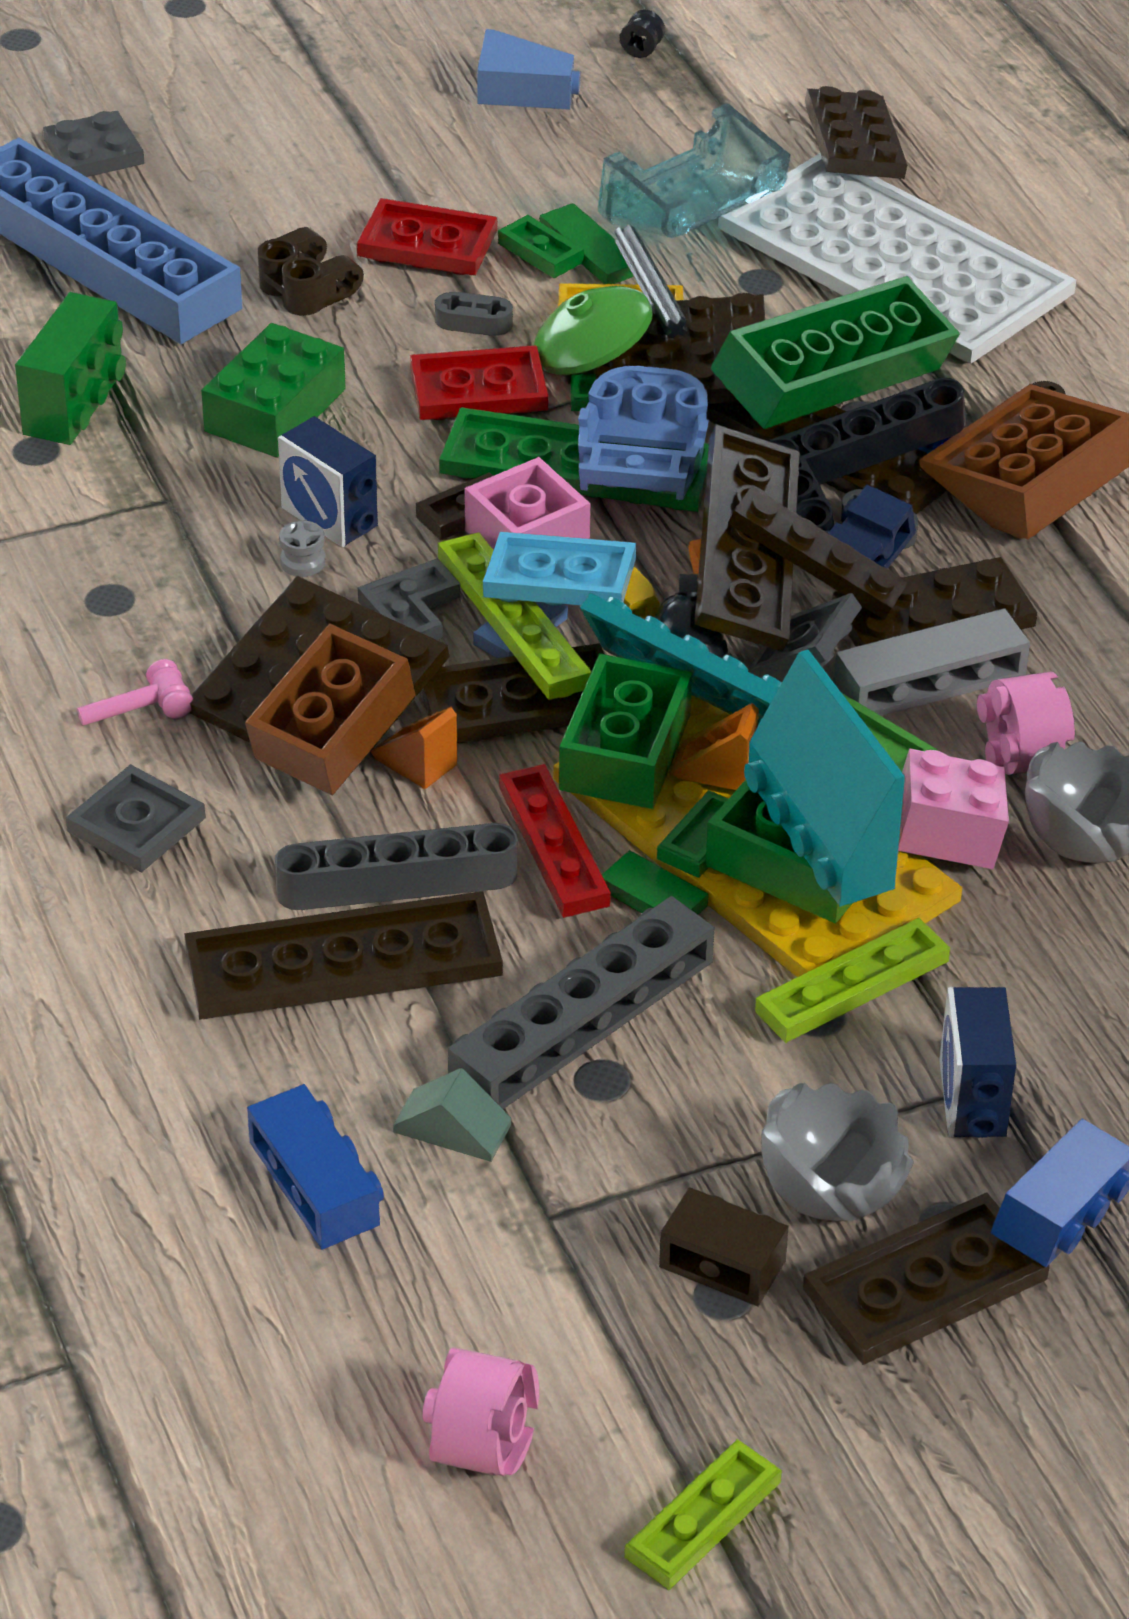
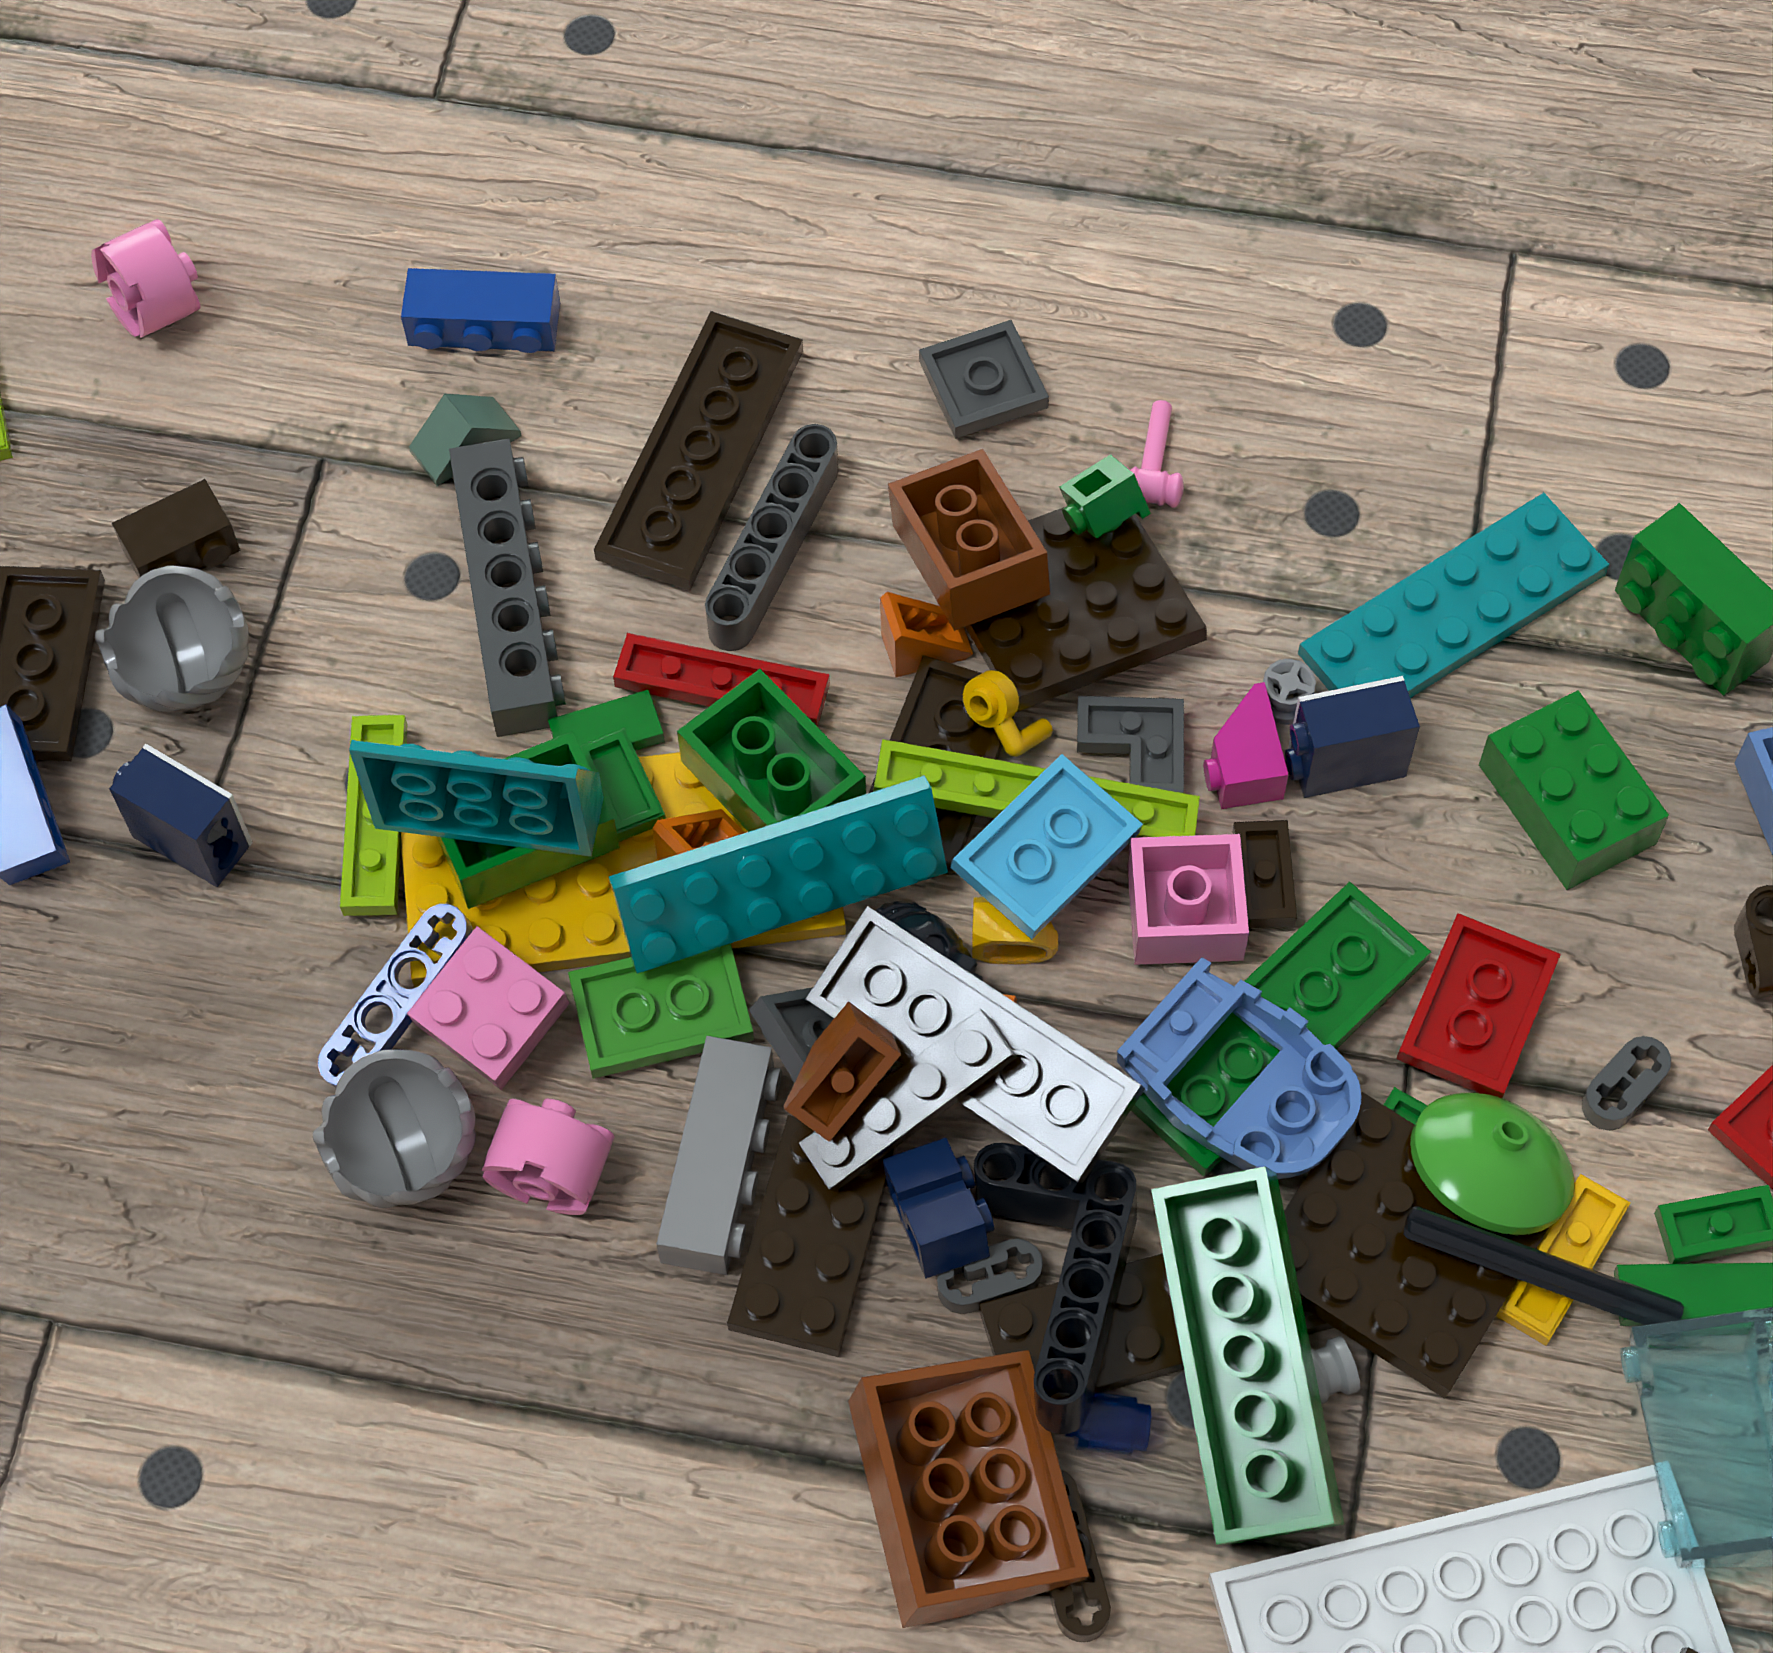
camera: 125 degrees right, 20 degrees up
(155, 505) = (1459, 602): none -> teal plate
(219, 651) = (1102, 498): none -> green brick
(371, 544) = (1247, 755): none -> dark pink slope
(458, 656) = (992, 702): none -> yellow plate
(829, 571) = (841, 1071): none -> dark orange slope
(1057, 889) = (387, 990): none -> beam

